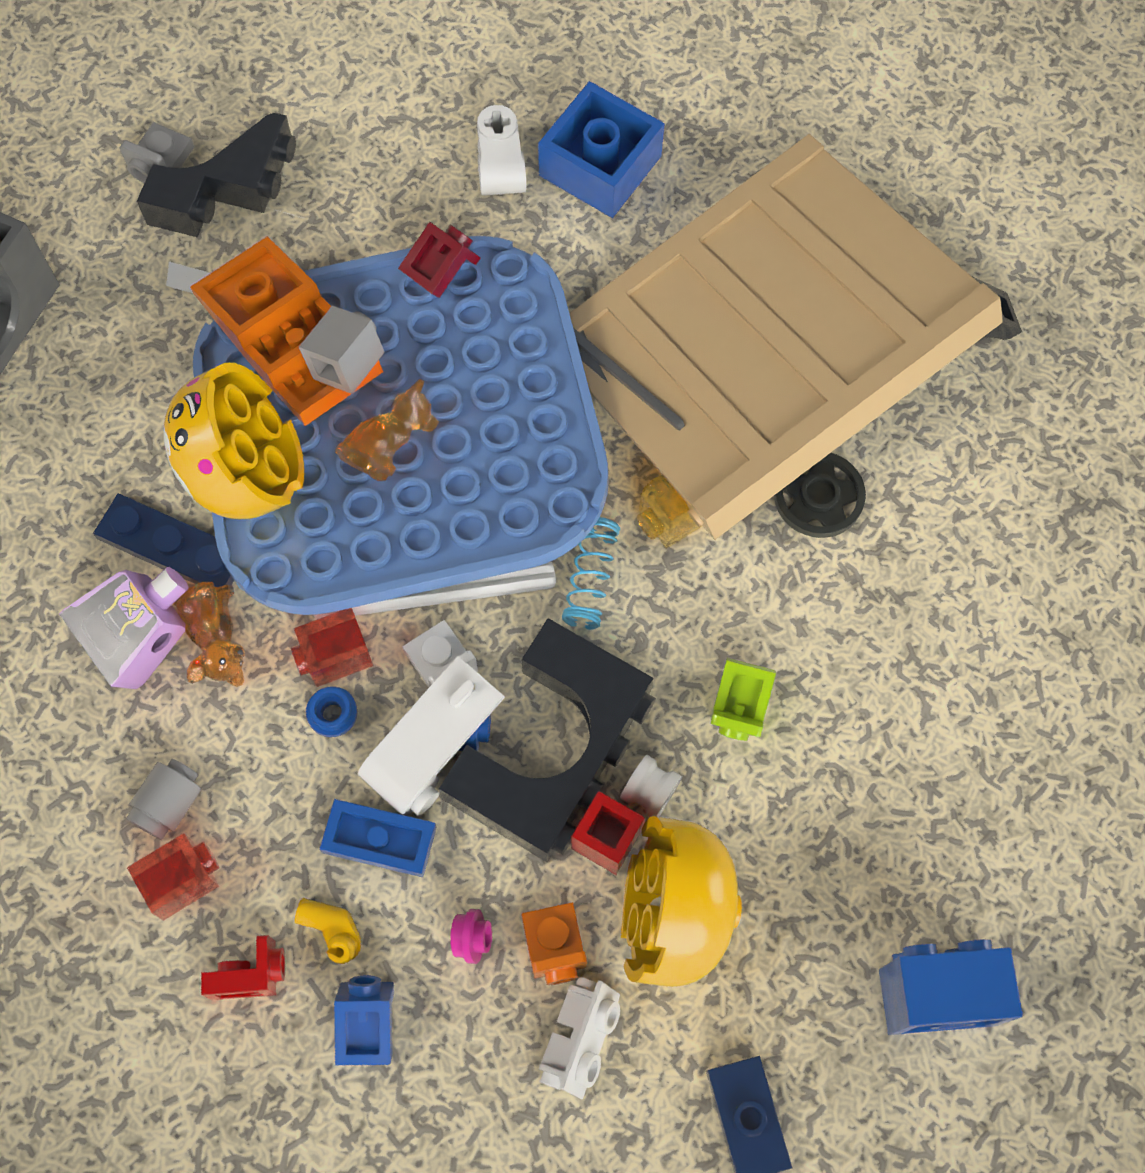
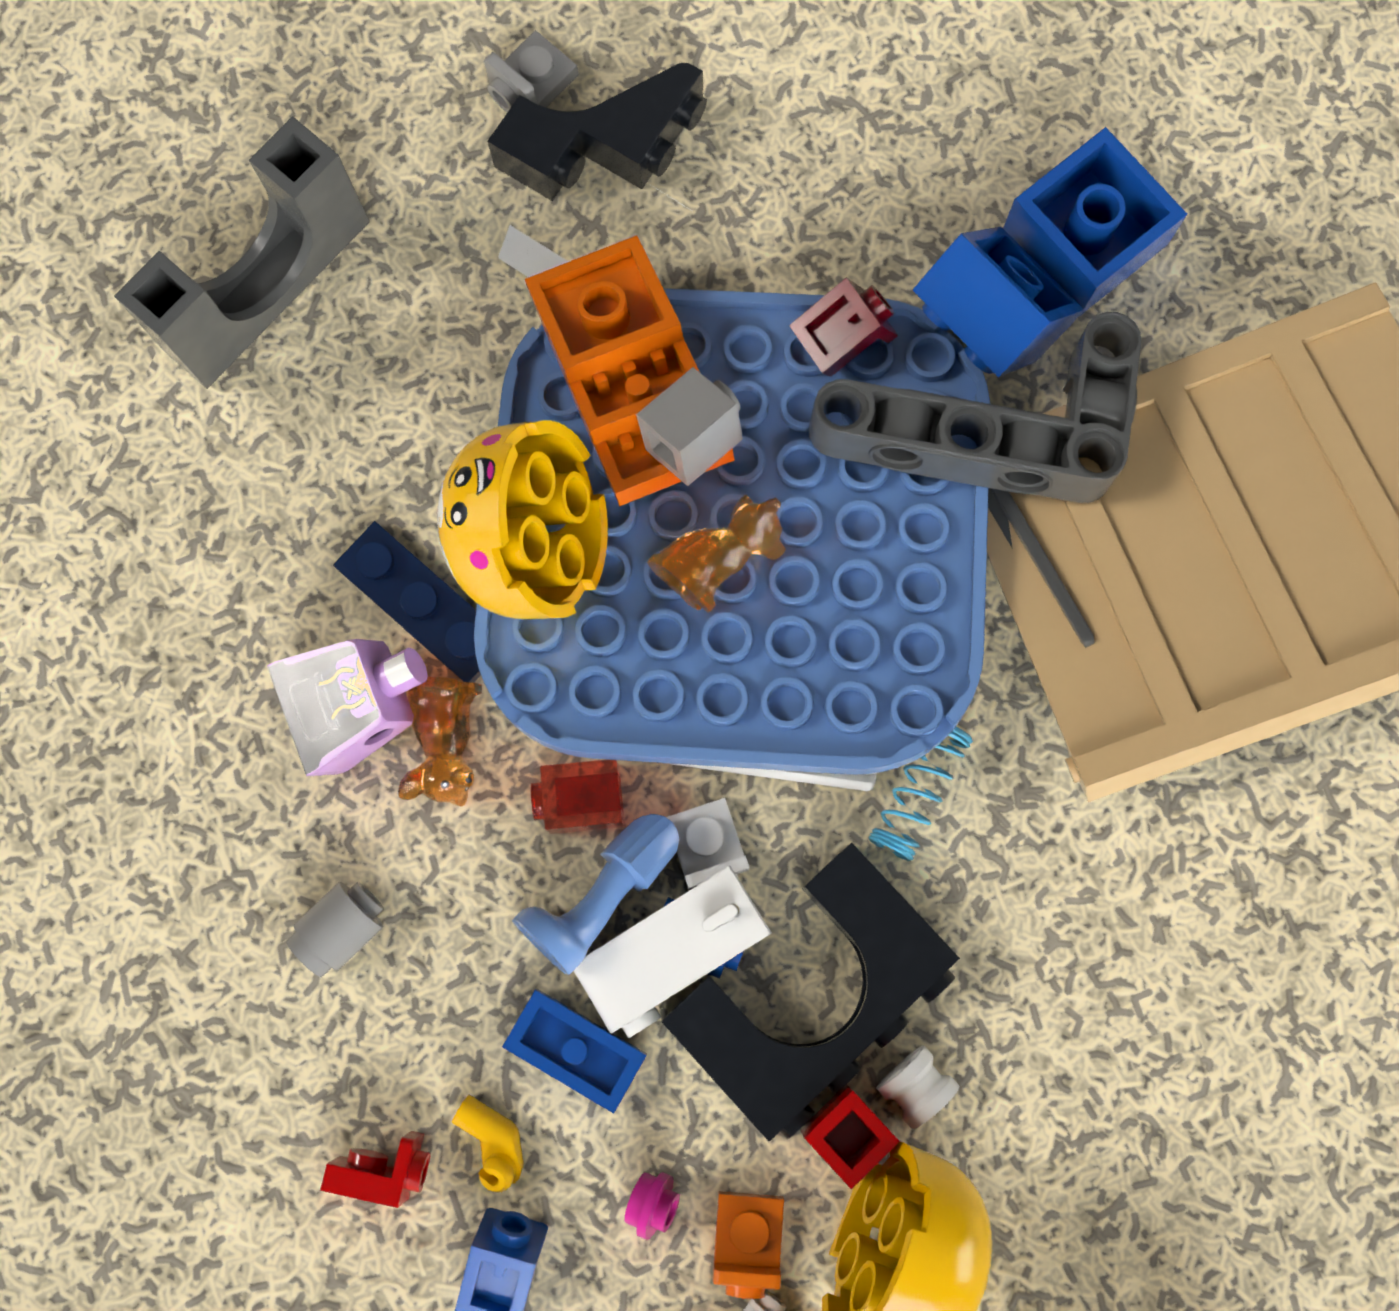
camera: 20 degrees right, 10 degrees up
(175, 875) = (326, 1027): clear red brick -> none
(324, 698) = (540, 868): blue plate -> none
(384, 683) = (632, 862): none -> medium blue piece
(499, 152) = (958, 193): white piece -> none
(545, 215) = (996, 301): none -> blue brick
(565, 307) = (1015, 446): none -> dark grey beam
(664, 513) = (1032, 737): clear yellow brick -> none
(742, 699) = (1061, 1010): lime bracket -> none
(822, 498) = (1239, 780): pearl dark grey wheel -> none

